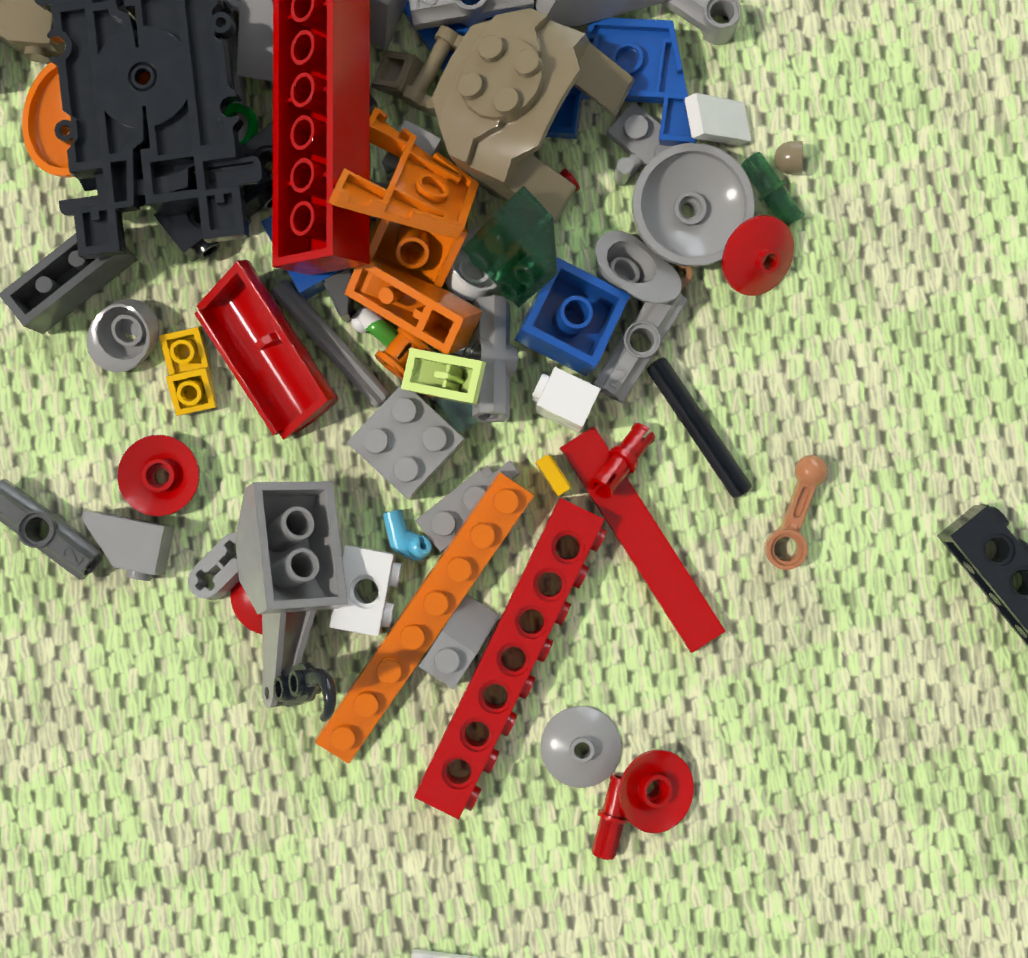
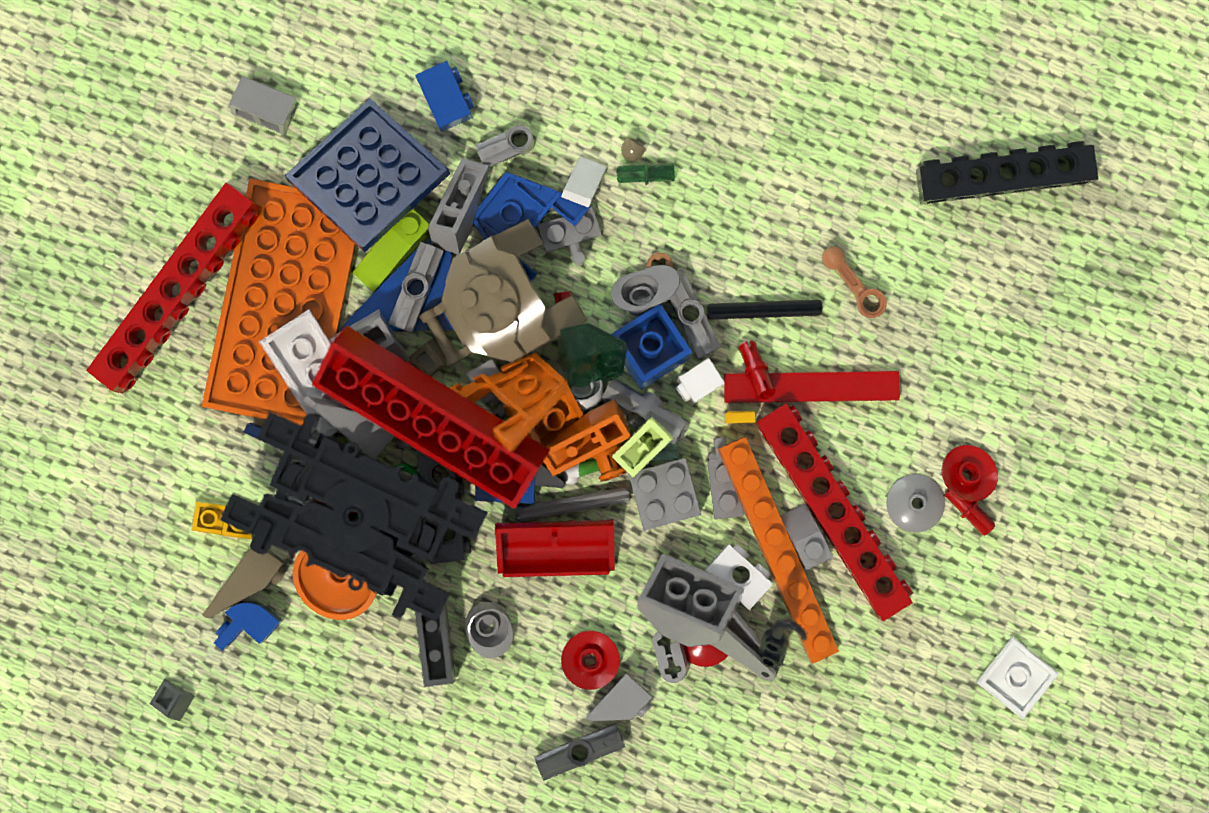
camera: 60 degrees left, 0 degrees up
(189, 371) = (535, 603): yellow slope -> none
(403, 540) = (723, 533): medium azure arm -> none
(703, 180) = (639, 213): light grey dish -> none
(746, 252) = (681, 208): red dish -> none

